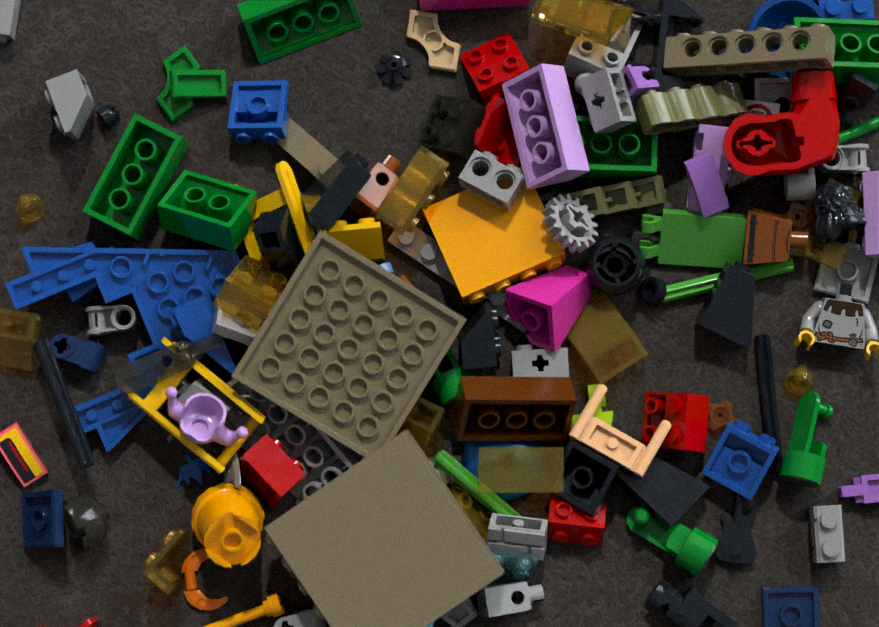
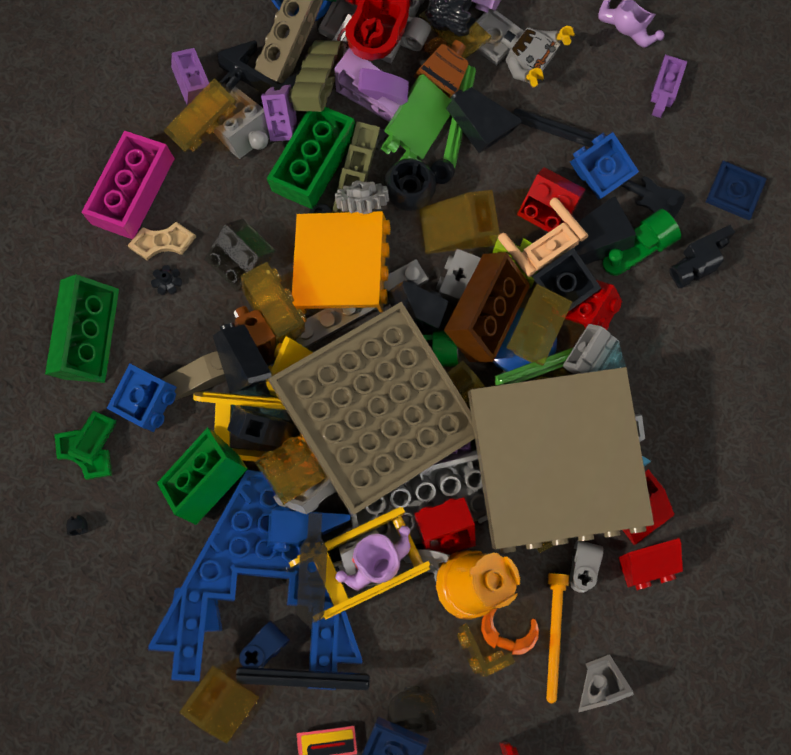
camera: 75 degrees left, 10 degrees down
(29, 207) = (117, 630): clear yellow tile -> none
(72, 101) = (45, 546): light grey slope -> none
(106, 319) = (248, 607): light grey piece -> none
(136, 177) = (141, 524): green brick -> none
(192, 469) = (411, 596): blue piece -> none
(487, 185) = (300, 244): light grey brick -> none
(494, 65) = (212, 201): red bracket -> none
(496, 133) = (266, 217): red bracket -> none
(497, 599) = (641, 383): light grey torso -> none
(545, 126) = (276, 179): lavender slope -> none
(549, 304) = (417, 247): dark pink slope -> none
(607, 100) = (292, 118): light grey brick -> none
(725, 408) = (562, 163): clear orange plate -> none
(799, 380) = (561, 101): clear yellow tile -> none
(804, 459) = (623, 120): green piece -> none
(827, 533) = (687, 134): light grey brick -> none

